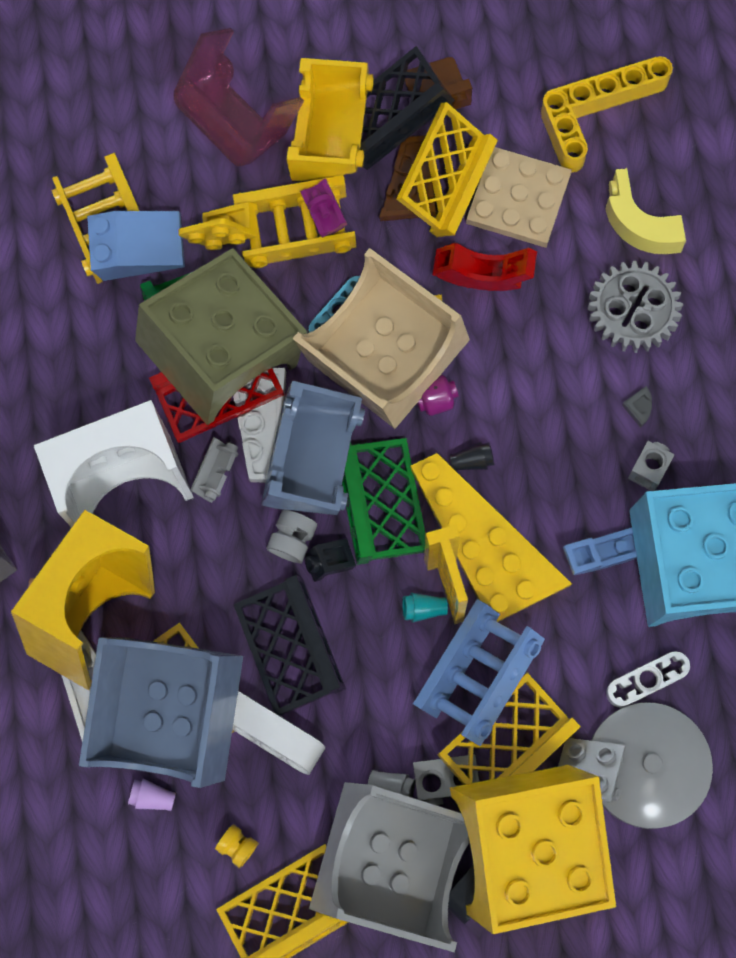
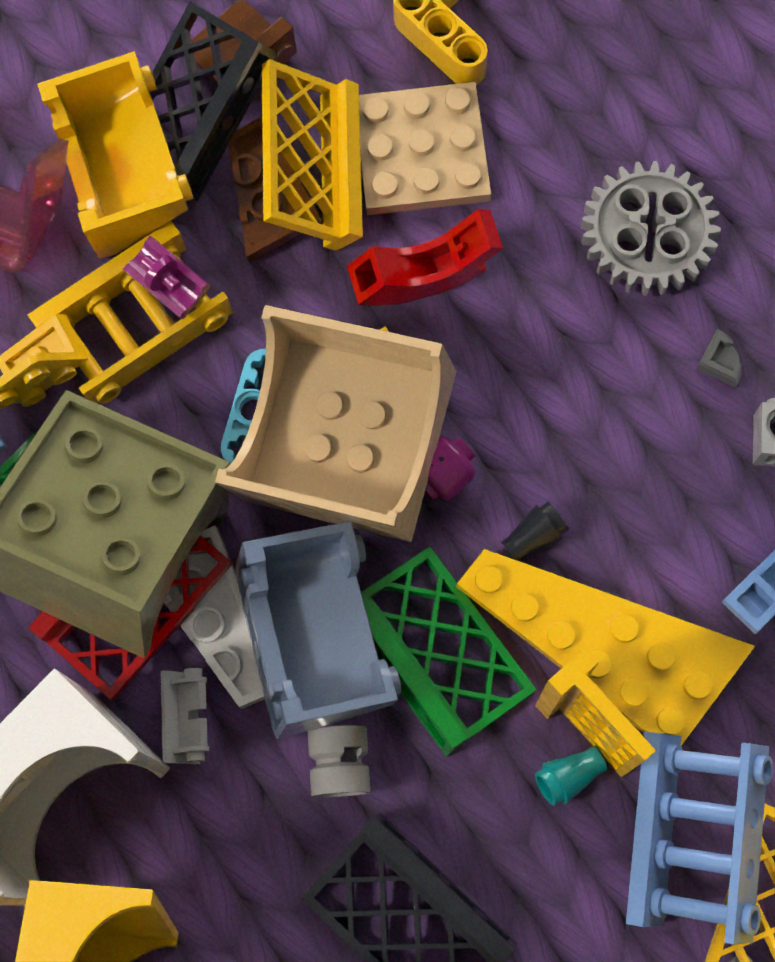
camera: 25 degrees left, 0 degrees up
(329, 559) = (406, 769): black bracket -> none
(636, 227) = (601, 120): light yellow arch -> none

